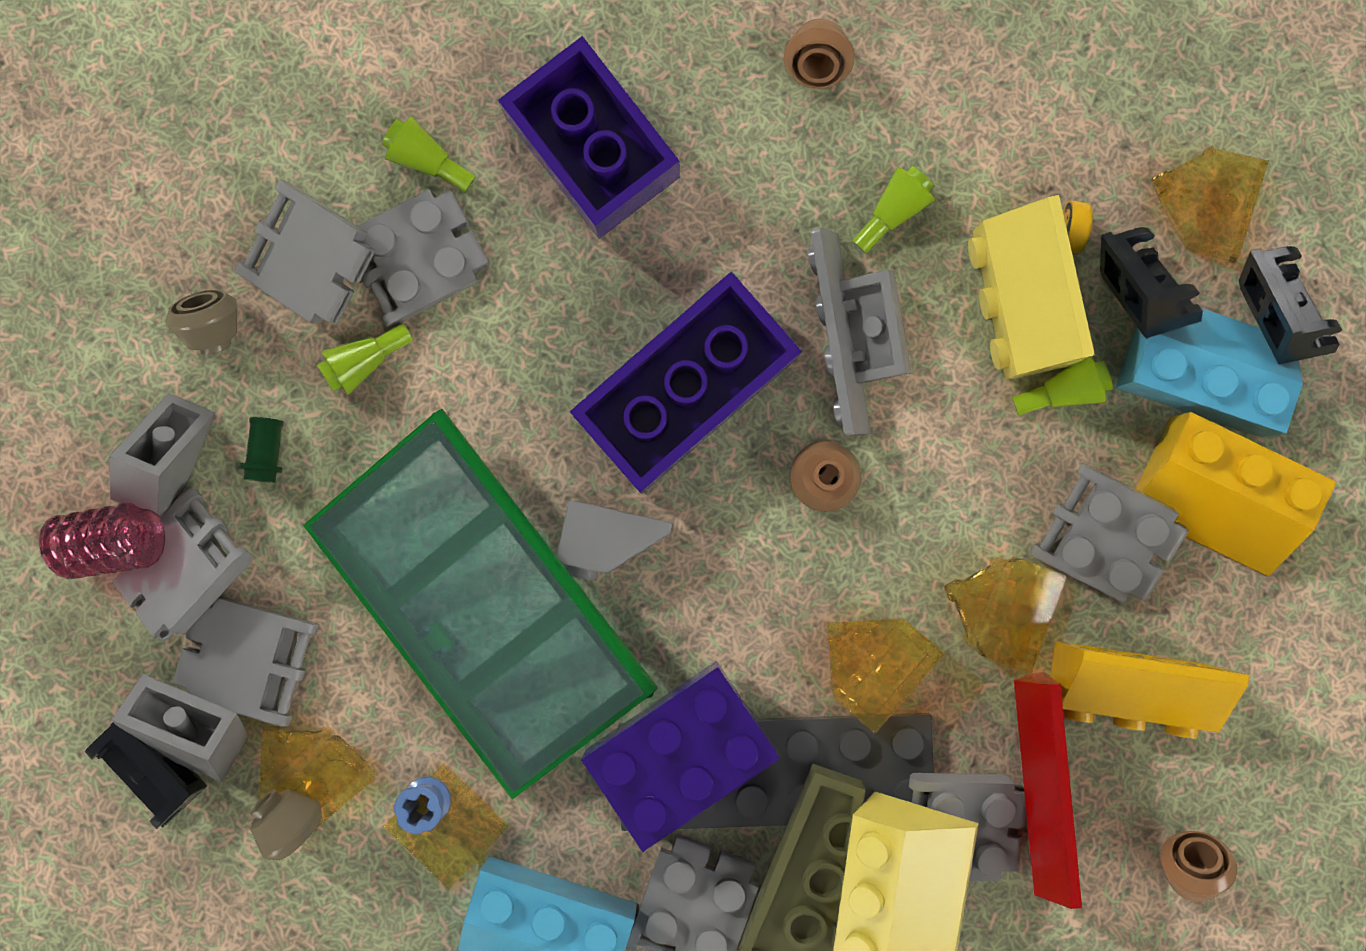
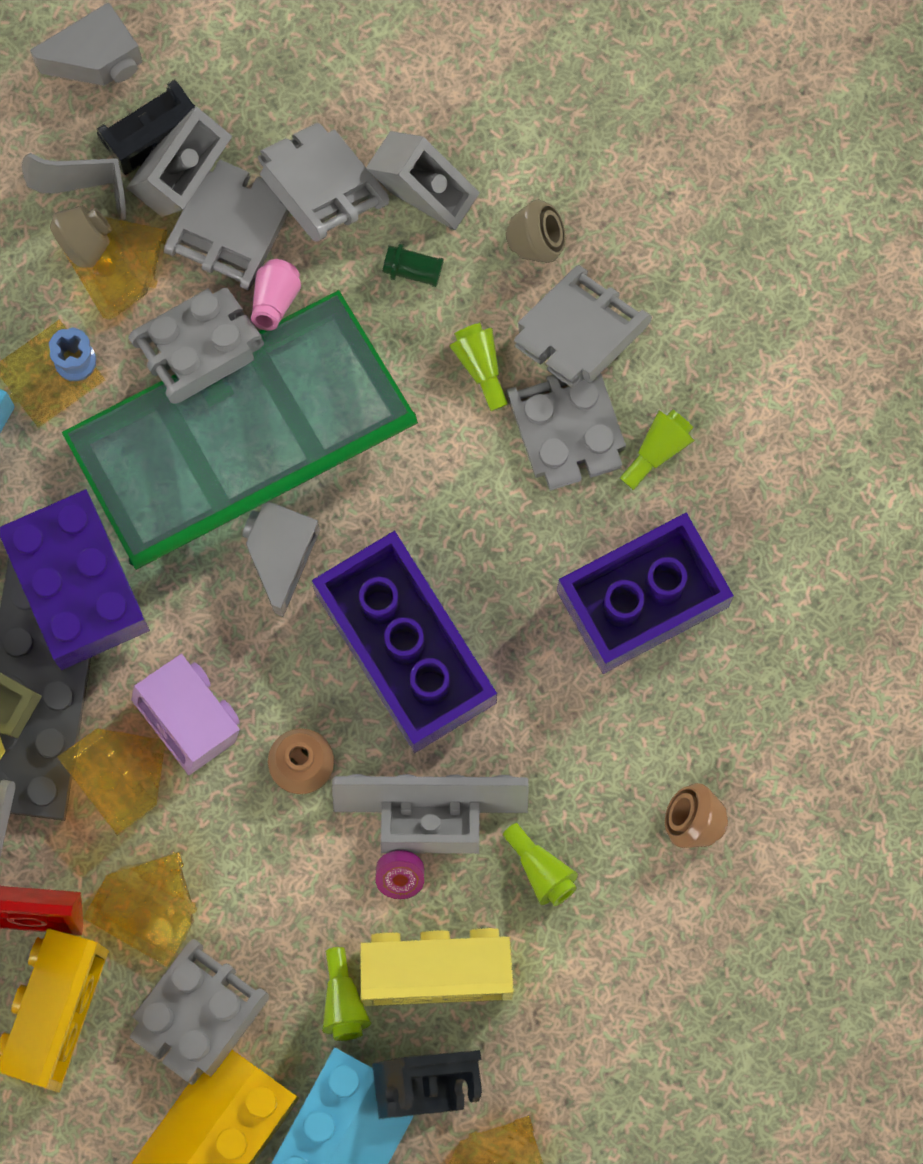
camera: 95 degrees right, 10 degrees down
(64, 853) = (90, 50): none -> light grey slope
(102, 541) = (353, 119): clear pink piece -> none
(215, 844) = (65, 176): none -> light grey piece
(317, 595) = (274, 291): none -> bright pink cone
(385, 666) = (199, 342): none -> light grey plate
(799, 603) = (186, 713): none -> lavender brick
(929, 350) = (400, 874): none -> magenta tile
(1078, 222) = (493, 1031): yellow tile -> none

